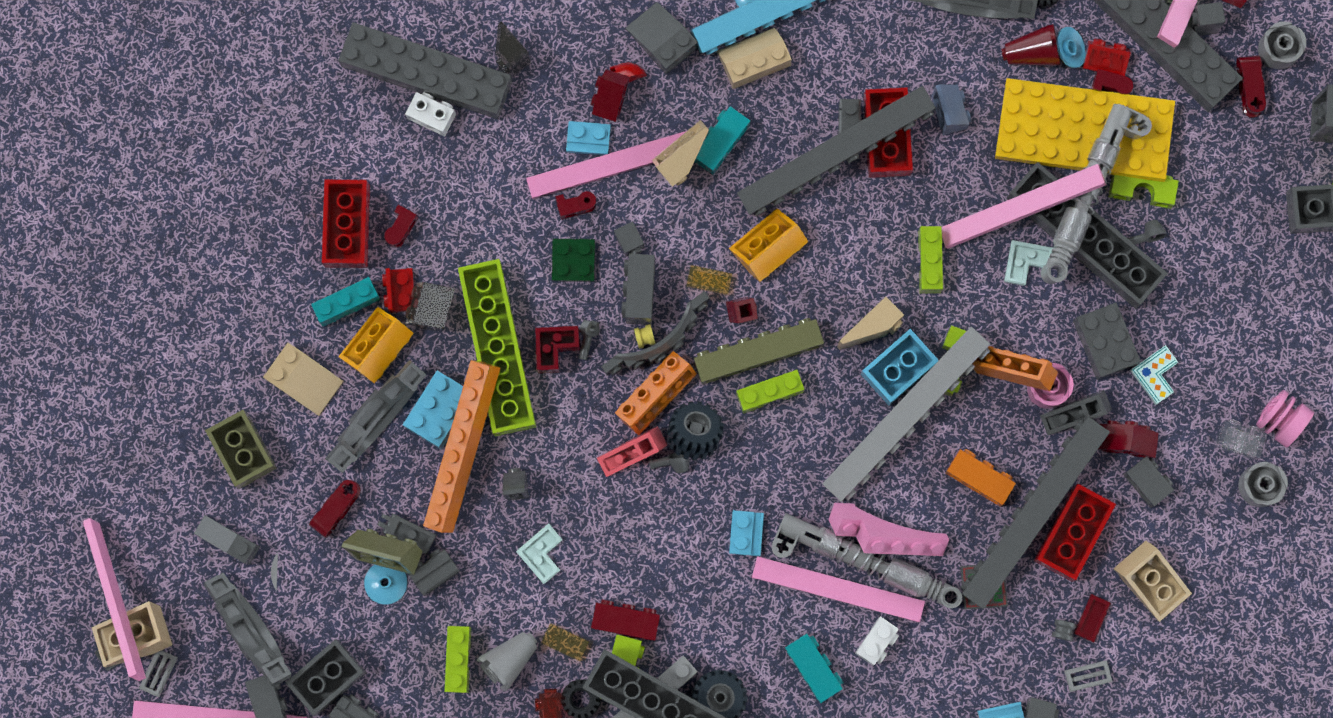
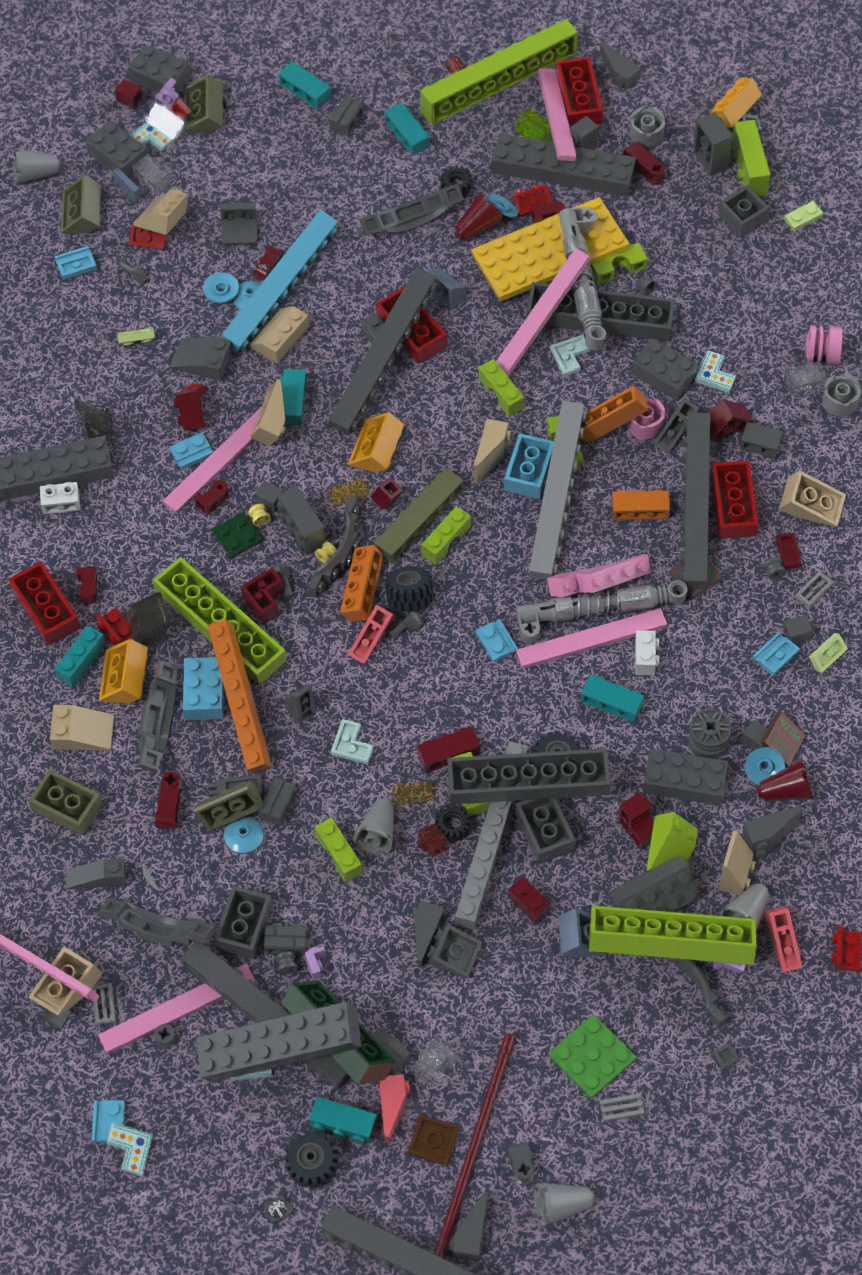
camera: 35 degrees left, 20 degrees down
(607, 253) = (259, 515): none -> light yellow wheel

